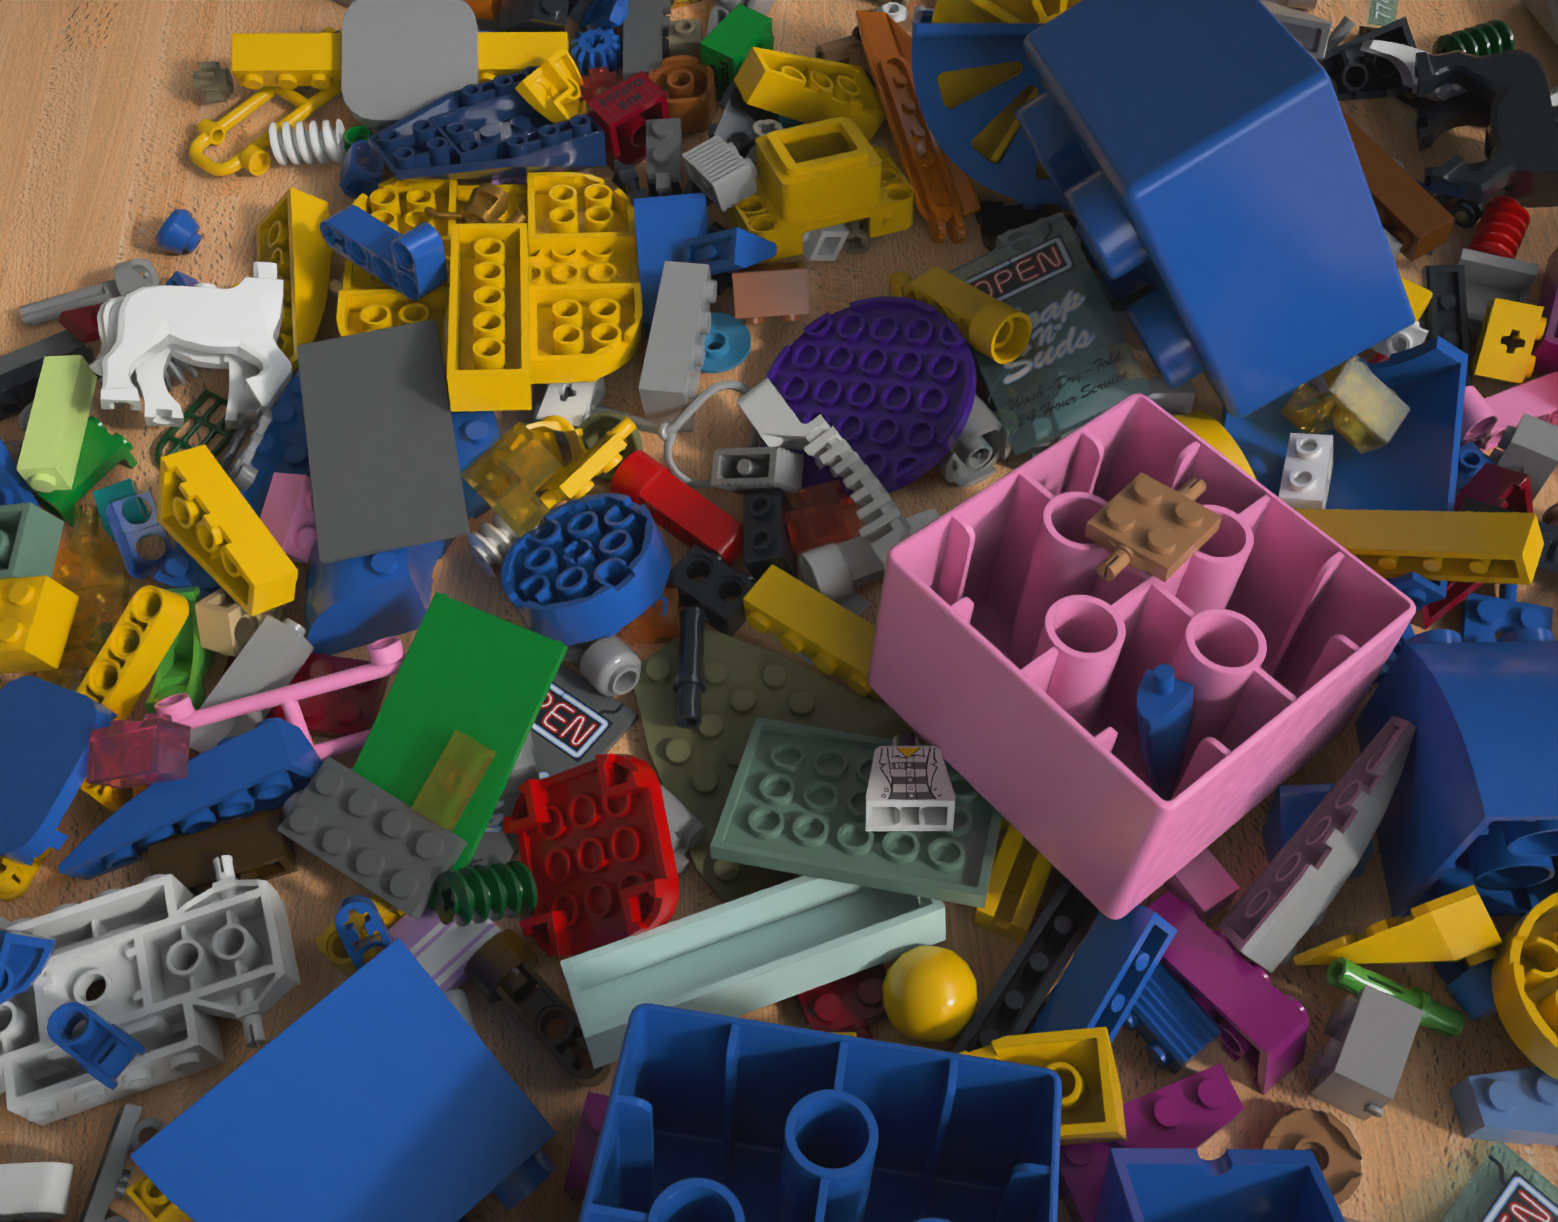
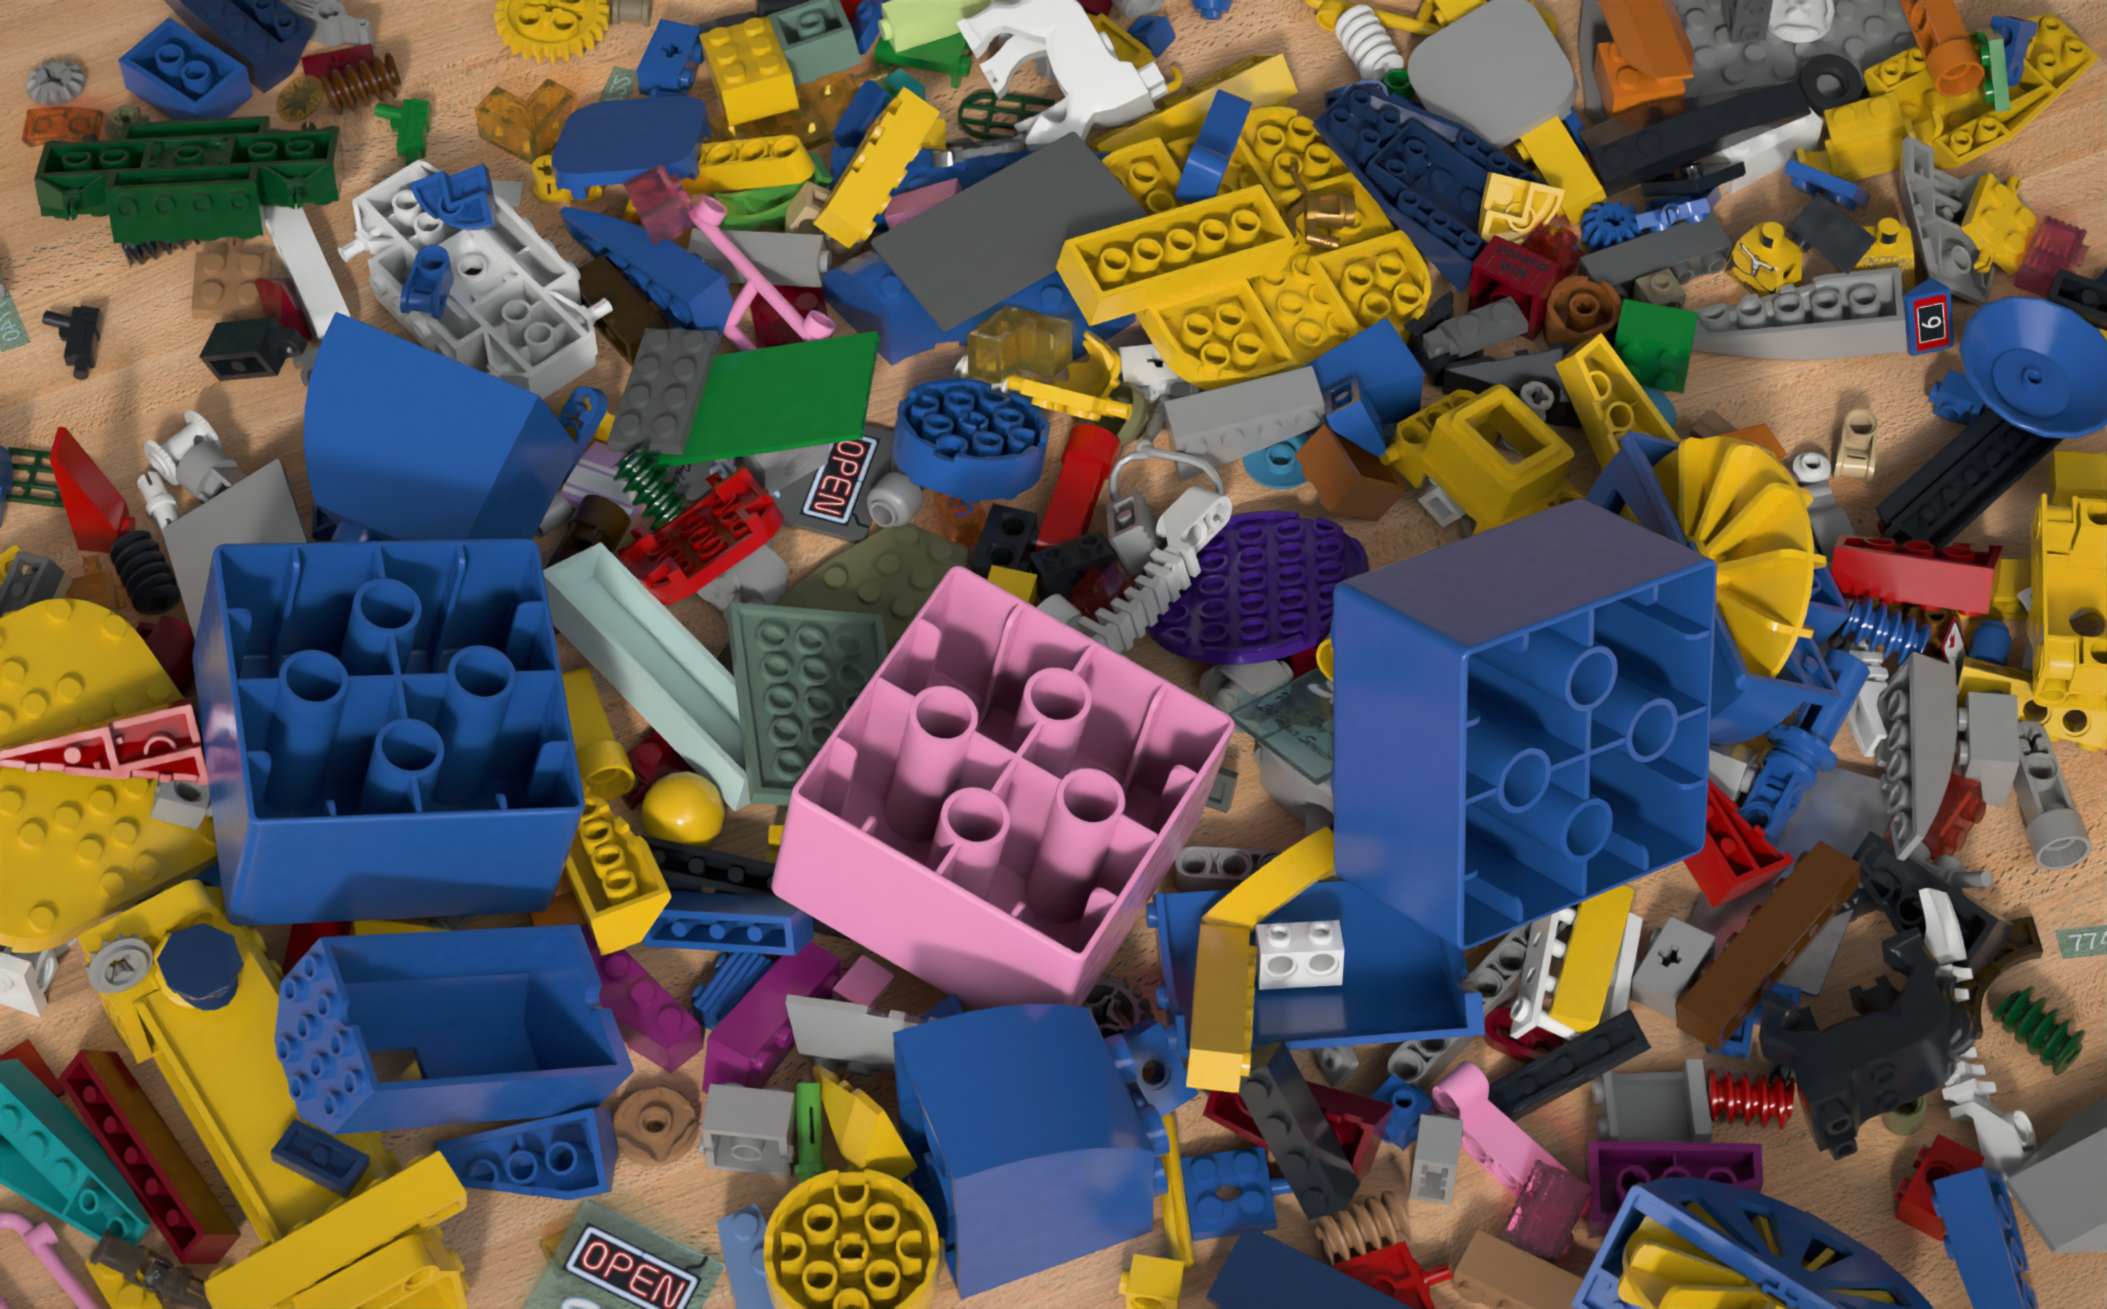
camera: 65 degrees right, 5 degrees down
(453, 780) = (723, 417): clear yellow plate -> none
(690, 682) = (897, 557): black pin -> none
(721, 172) = (1458, 374): light grey brick -> none
(909, 788) = (820, 708): white torso -> none
(1152, 527) = (1067, 742): medium nougat plate -> none
(1163, 726) = (910, 815): blue piece -> none
(1349, 402) = (1393, 963): clear yellow brick -> none
(1499, 321) = (1581, 1113): yellow brick -> none

